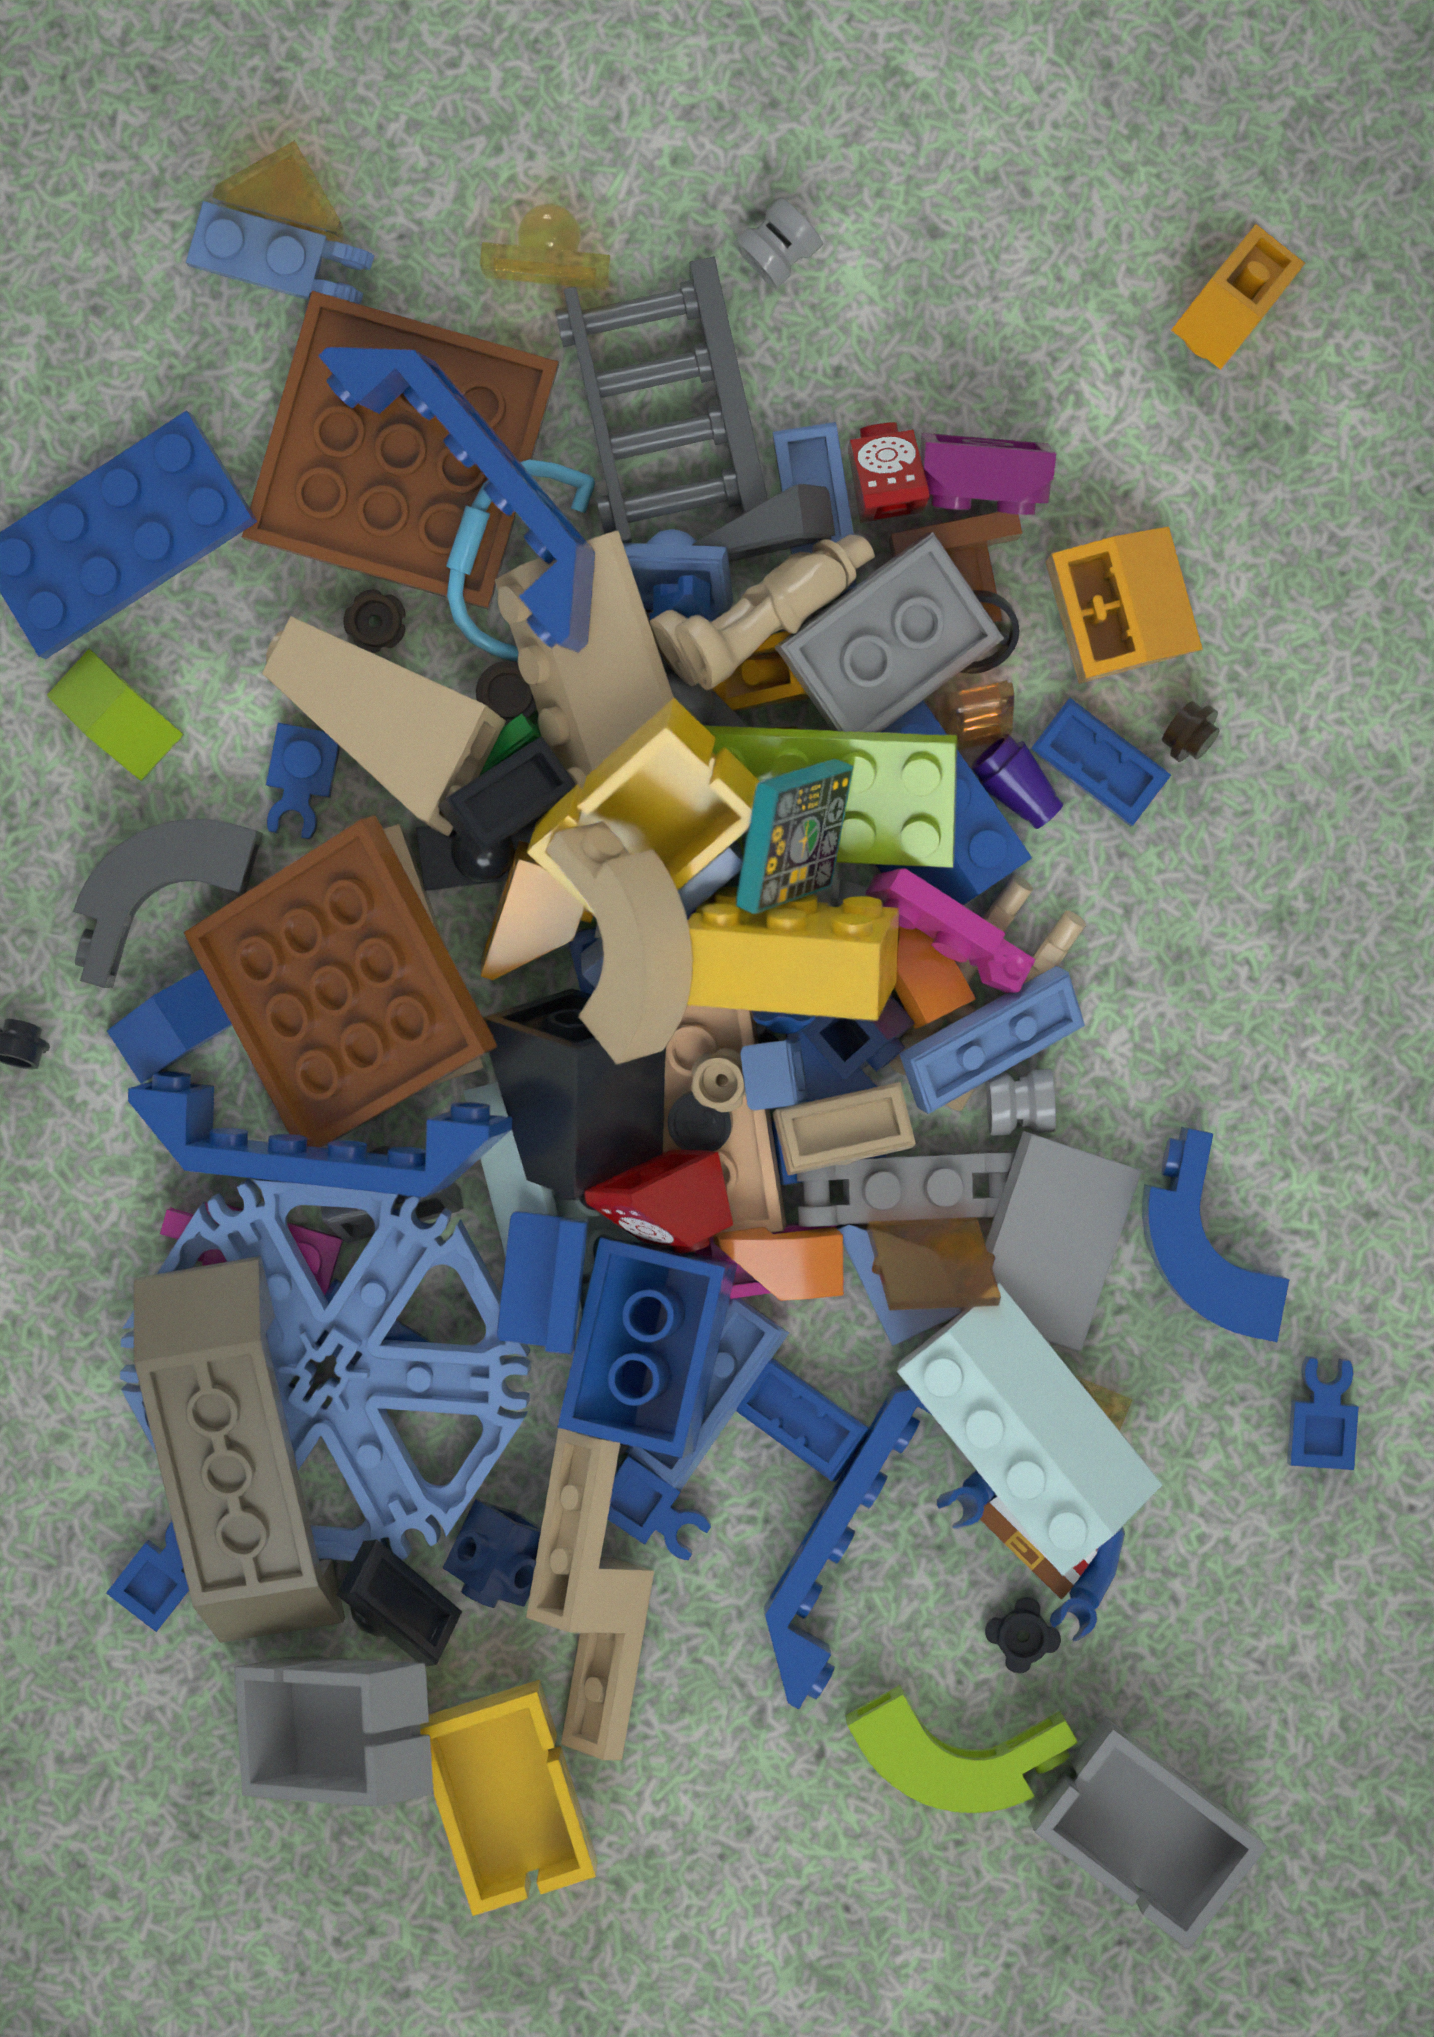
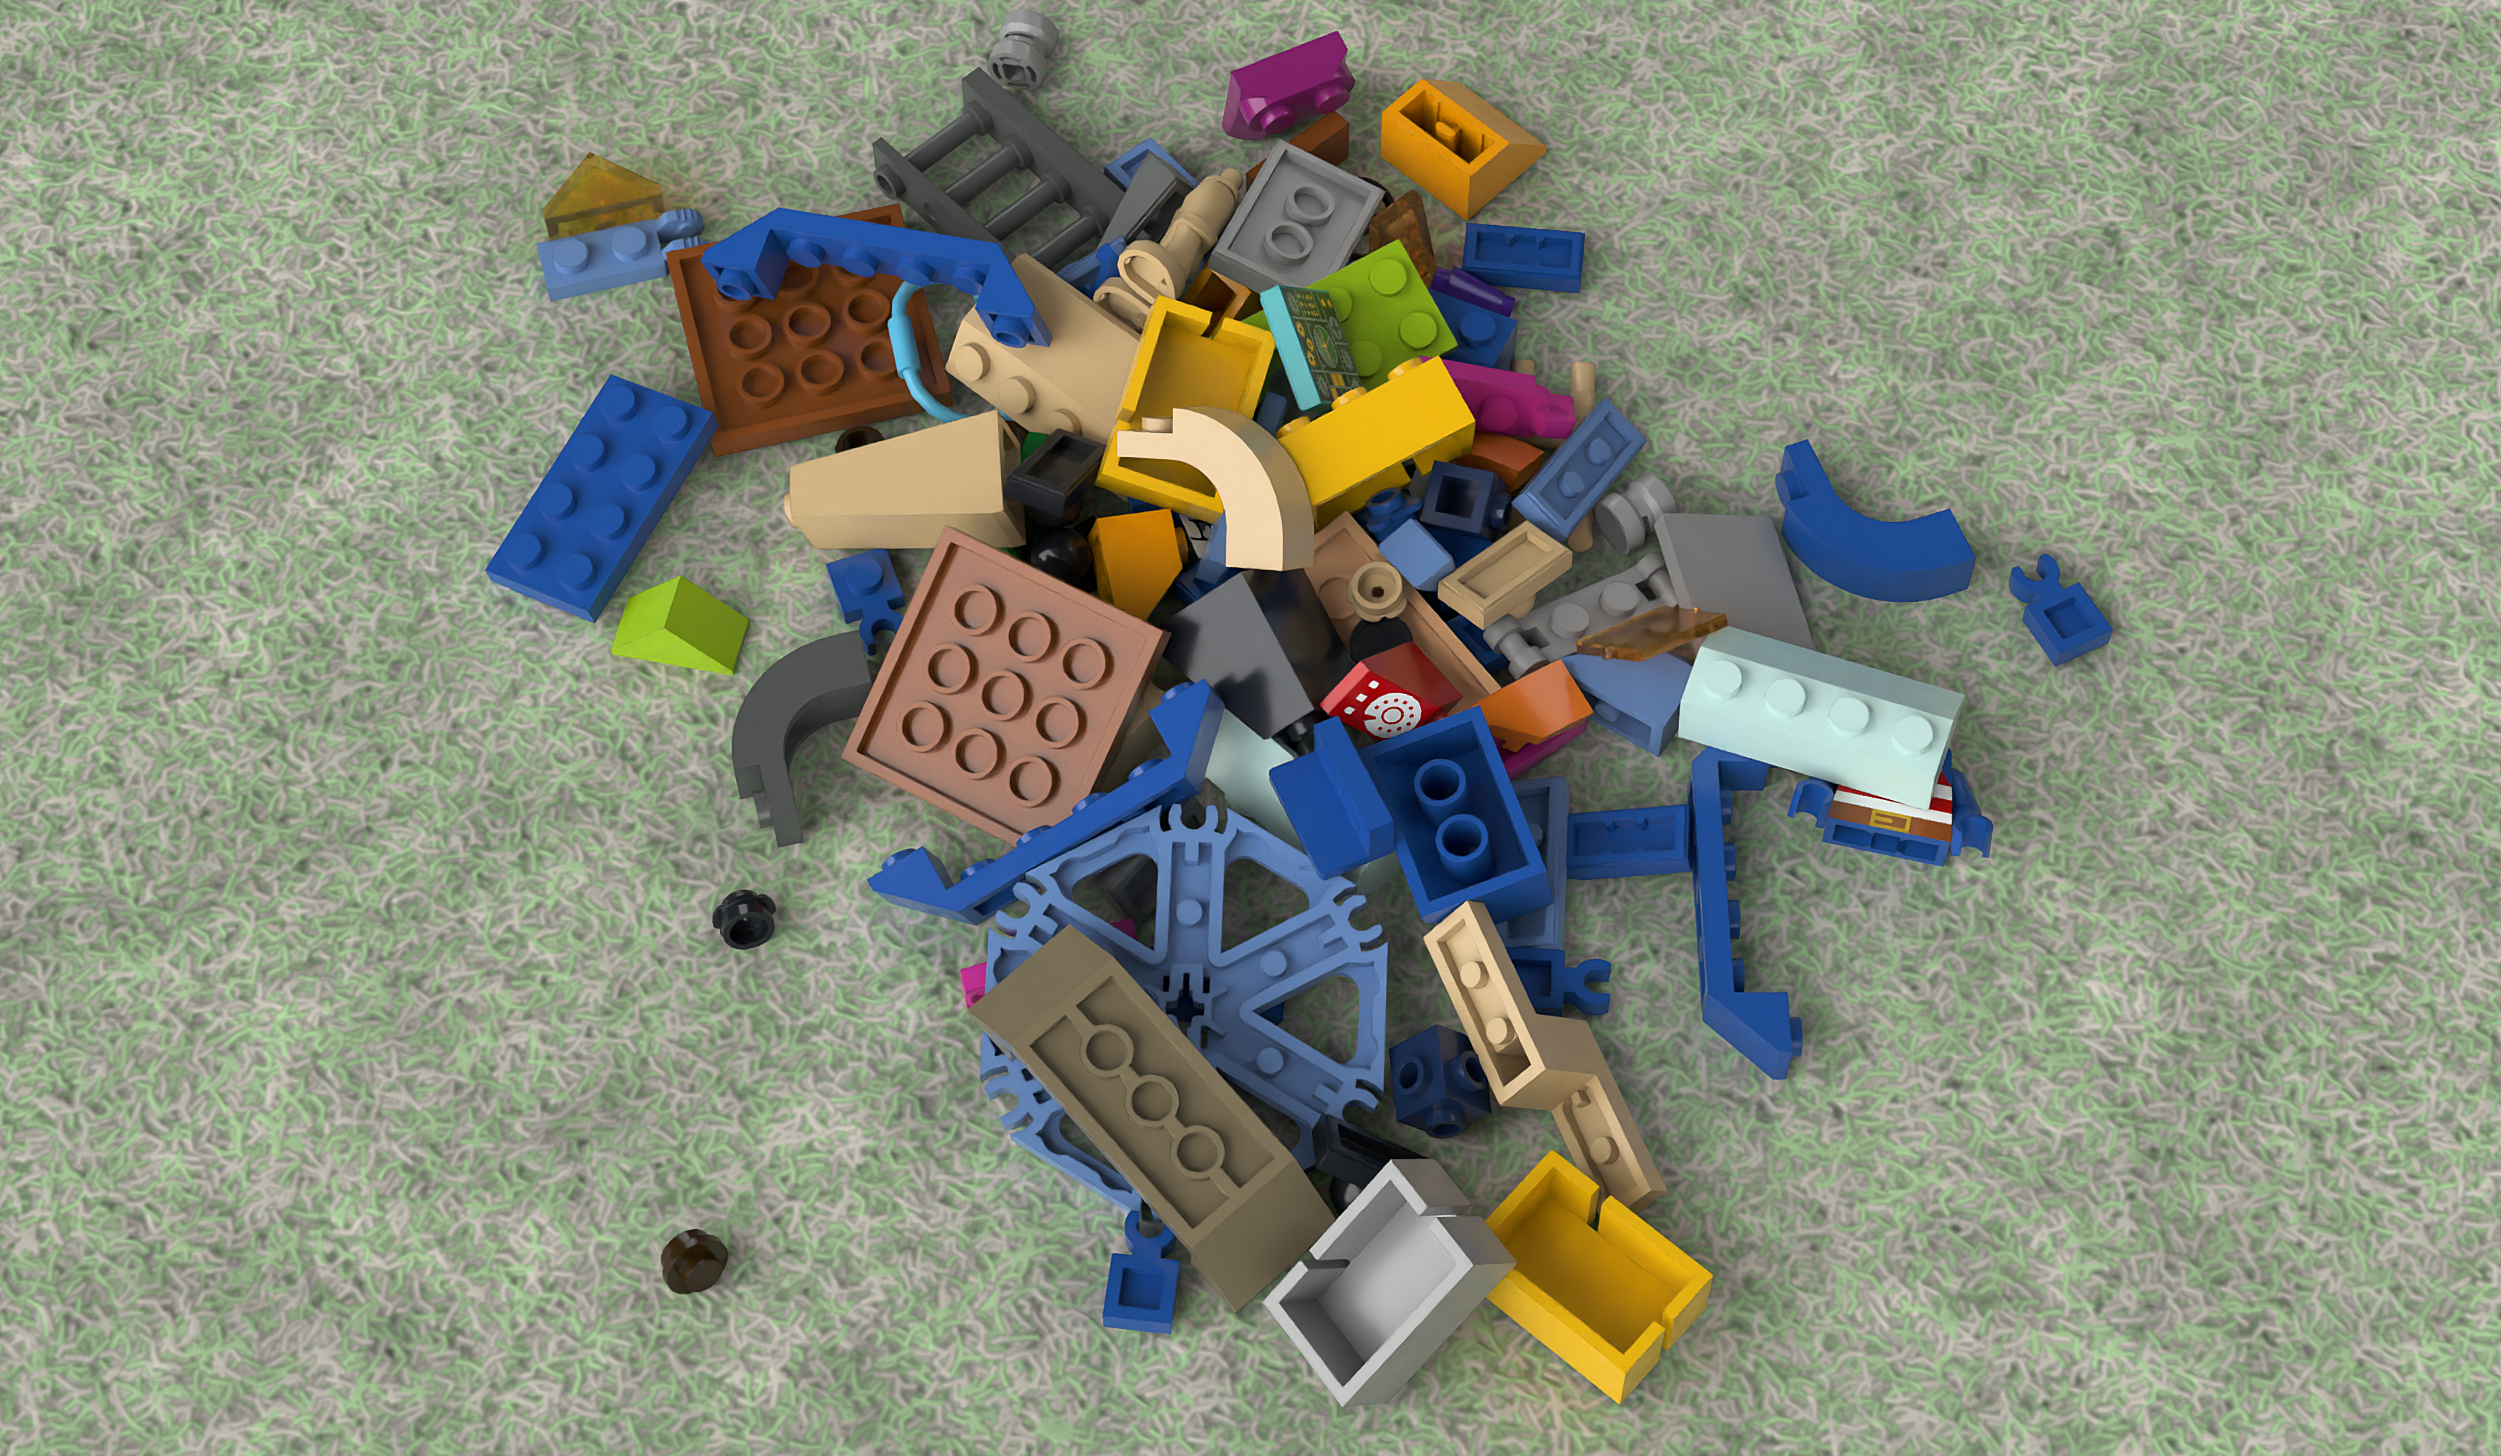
camera: 30 degrees left, 30 degrees down
(170, 1025) = (869, 828): blue slope -> none
(547, 253) = (841, 144): clear yellow tile -> none
(887, 473) = (1218, 138): red slope -> none
(949, 1775) = (1950, 1053): lime arch -> none
(1019, 1653) = (1946, 897): black plate -> none
(1148, 1826) = (2164, 989): light grey piece -> none
(1191, 731) = (1579, 200): dark brown plate -> none

